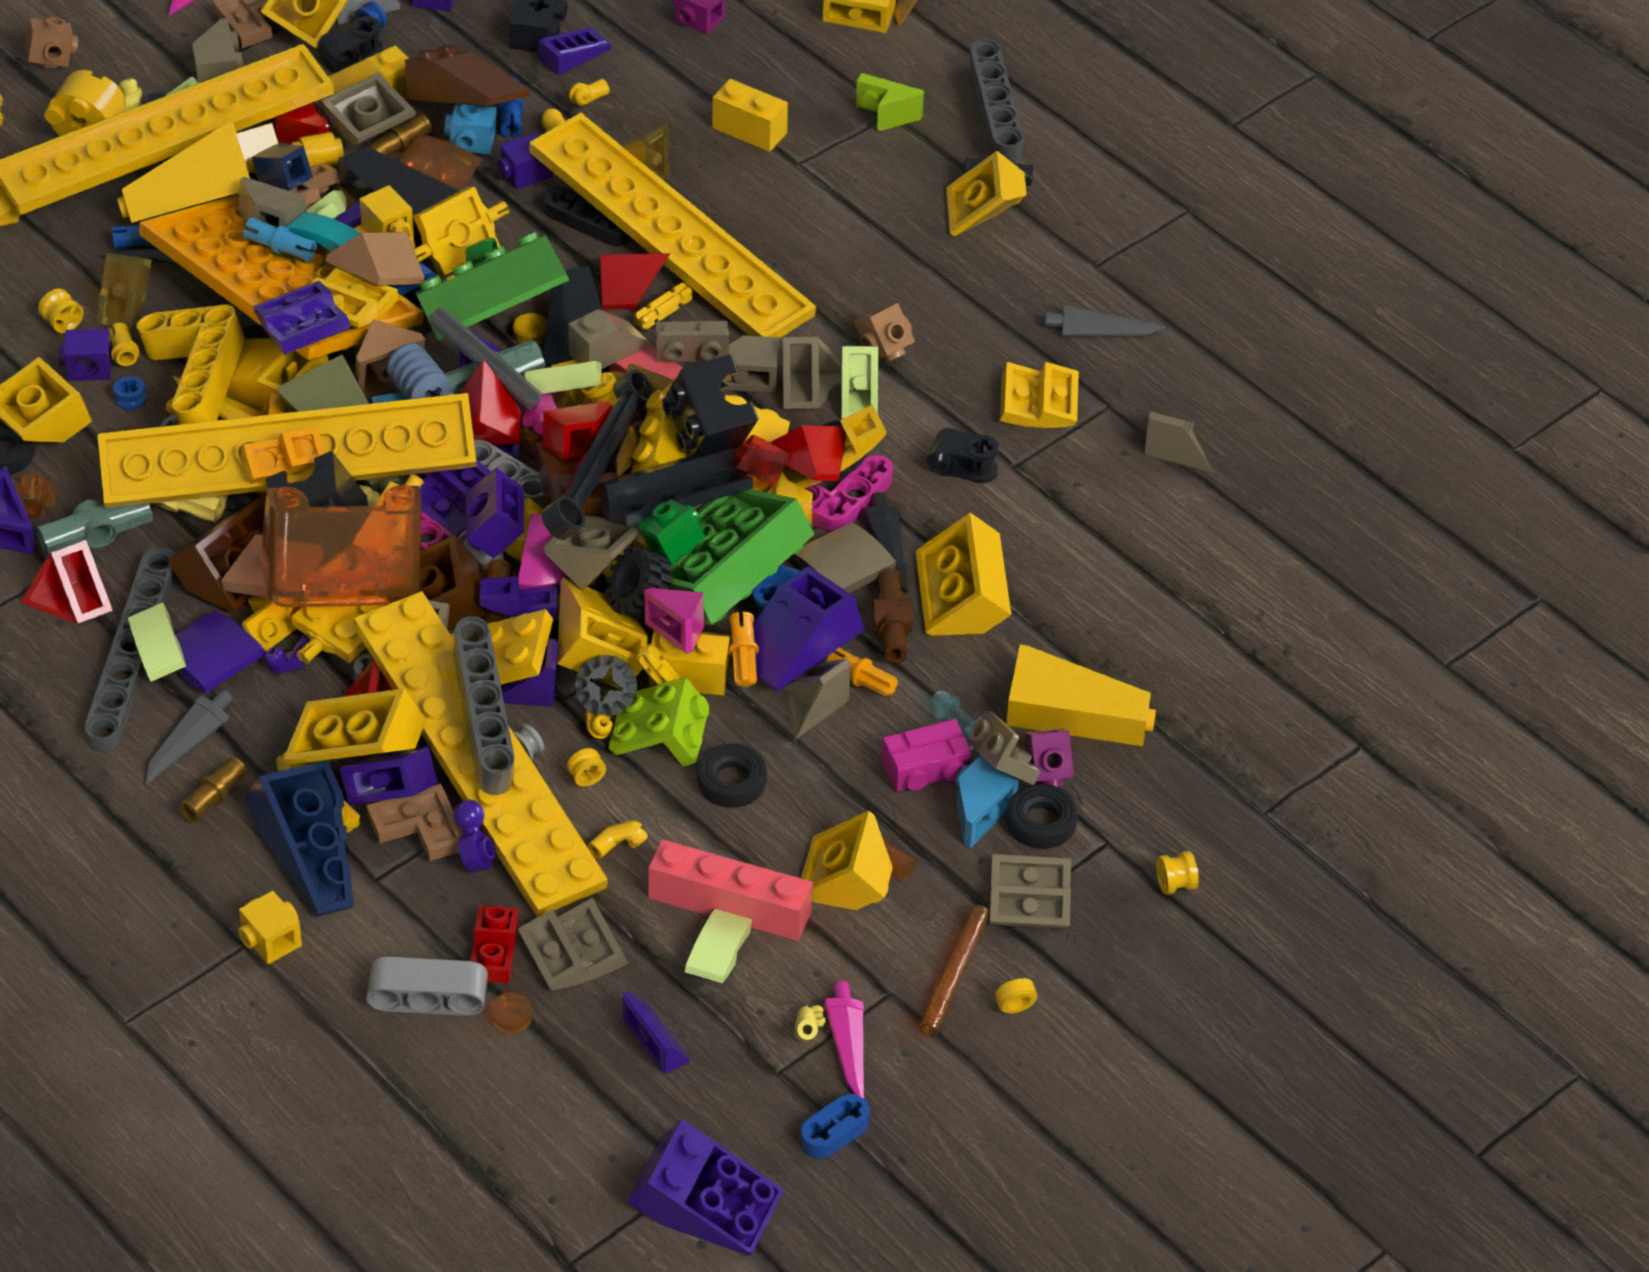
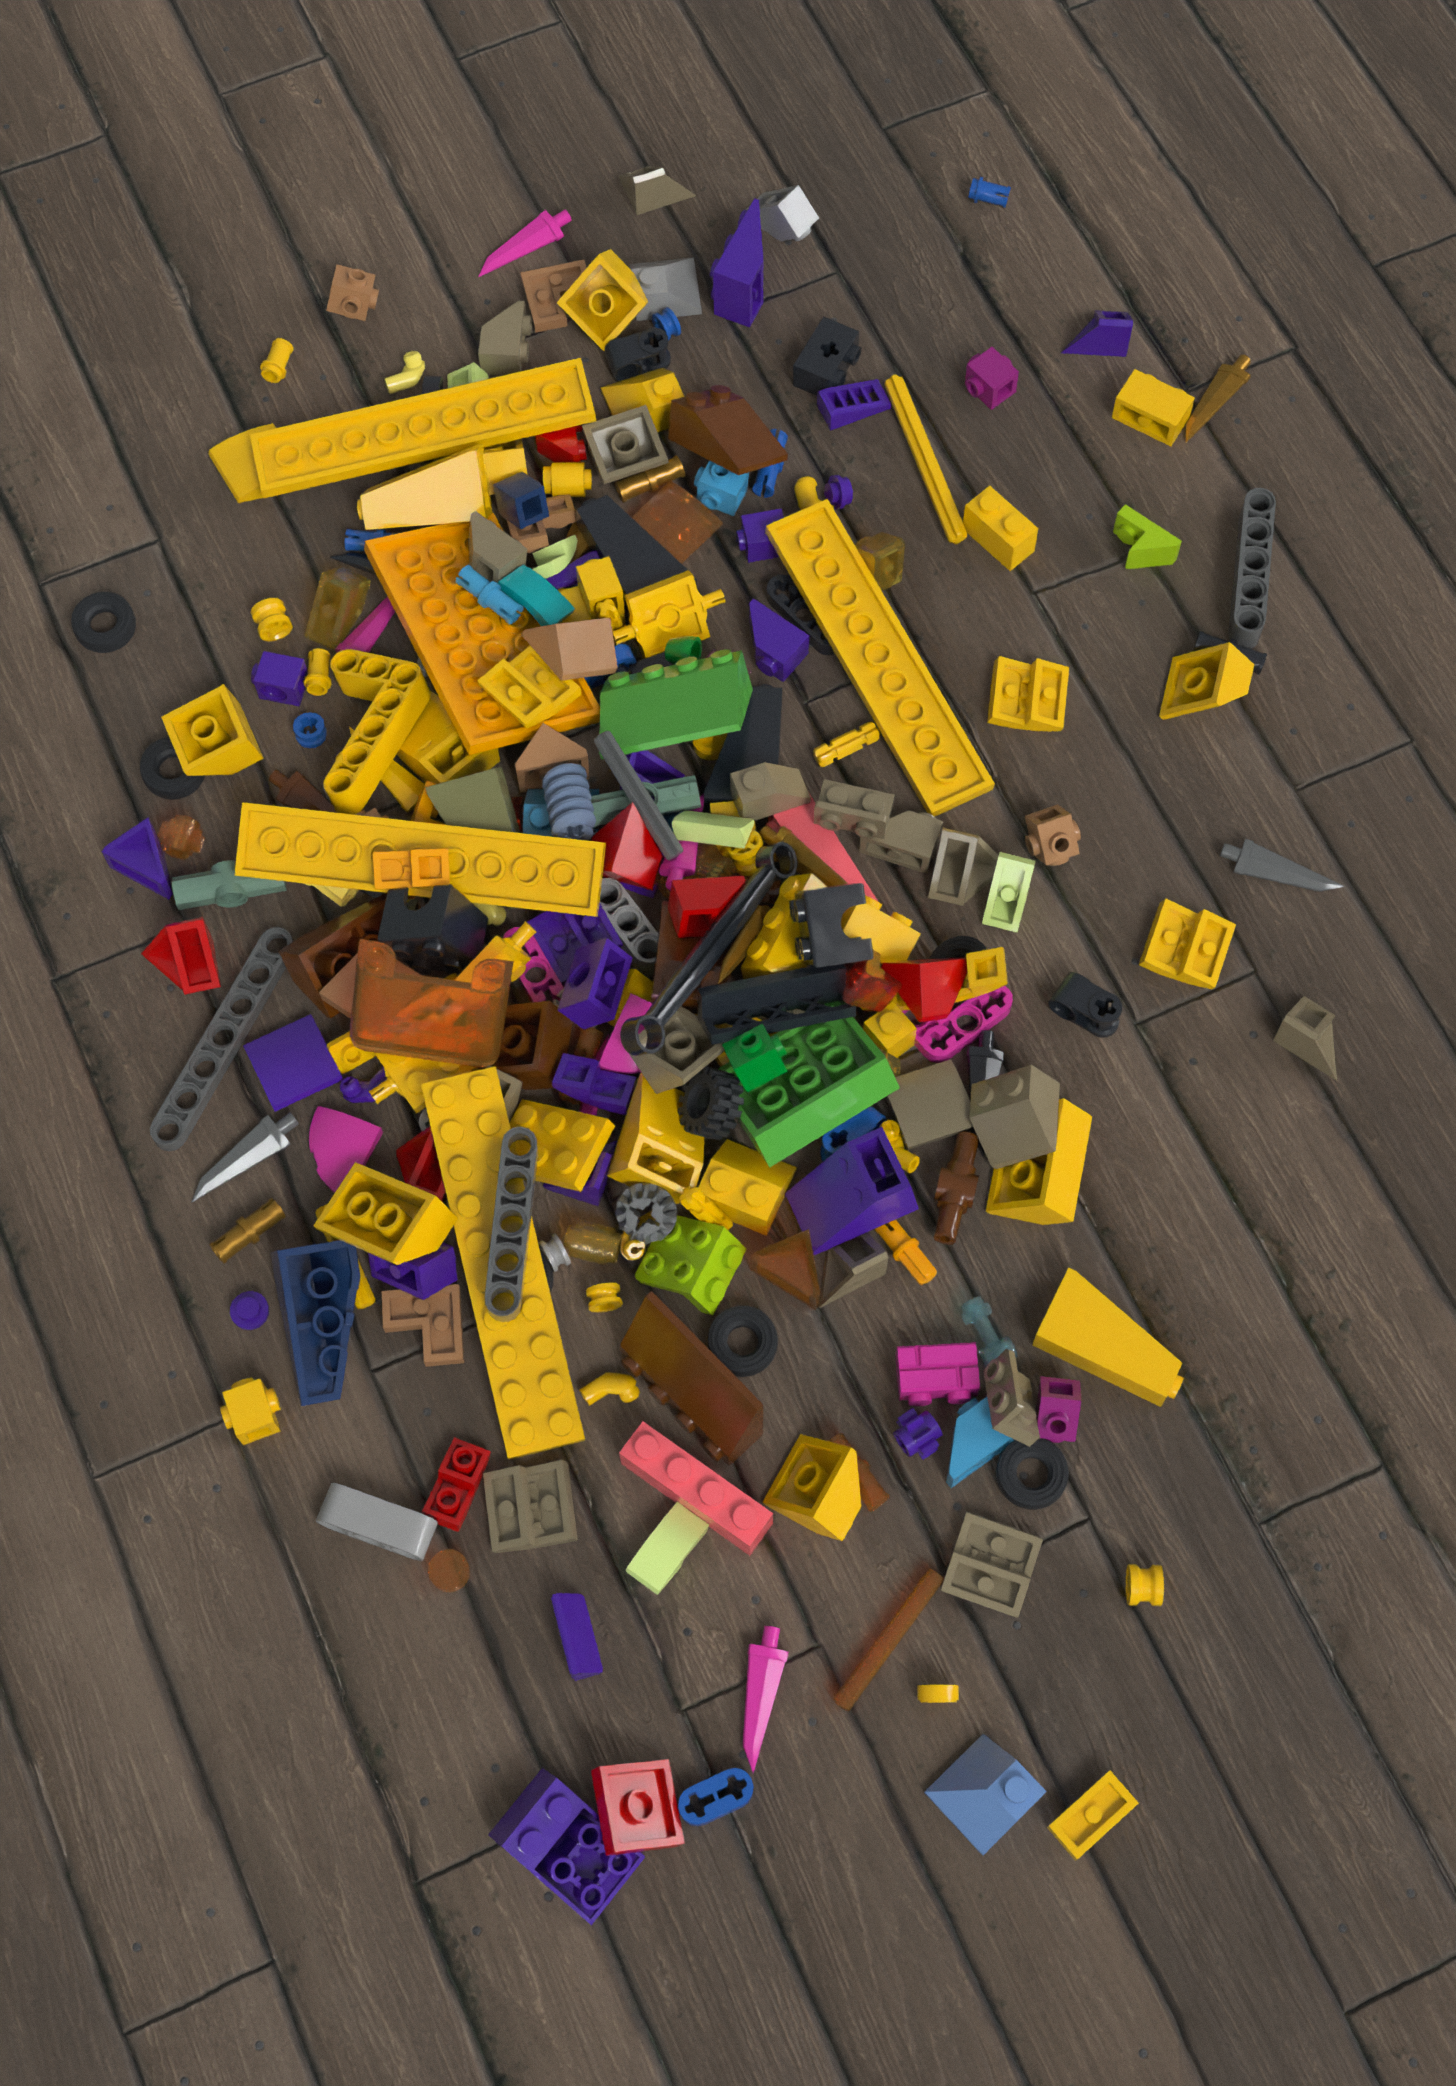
camera: 20 degrees right, 20 degrees up
(83, 102) = (357, 381): yellow brick -> none
(156, 642) = (239, 1050): yellowish green slope -> none
(164, 298) = (369, 630): none -> dark pink bar
(237, 854) = (249, 1310): none -> dark purple plate
(279, 703) = (339, 1142): none -> dark pink brick
(301, 317) = (472, 709): dark purple slope -> none
(474, 847) = (468, 1370): dark purple plate -> none
(561, 726) = (593, 1242): none -> clear yellow brick
(571, 236) = (776, 642): none -> dark purple slope
(583, 94) = (843, 463): yellow arm -> none
(588, 109) = (838, 491): none -> dark purple plate
(627, 278) = (820, 701): red slope -> none
(659, 79) = (925, 459): none -> yellow axle
(675, 615) = (734, 1160): dark pink slope -> none
(699, 791) = (691, 1381): none -> reddish brown slope
(743, 650) = (793, 1200): light orange axle -> none
(758, 702) = (790, 1267): none -> clear orange slope
(764, 1139) = (637, 1807): none -> plate
(807, 1022) = (718, 1676): light yellow arm -> none
(822, 239) = (1028, 695): none -> yellow slope
(925, 804) = (917, 1433): none -> dark purple gear
(928, 539) = (1016, 1115): none -> dark tan slope
(1091, 1062) = (985, 1793): none -> medium blue slope
(1193, 1055) = (1092, 1815): none -> yellow plate

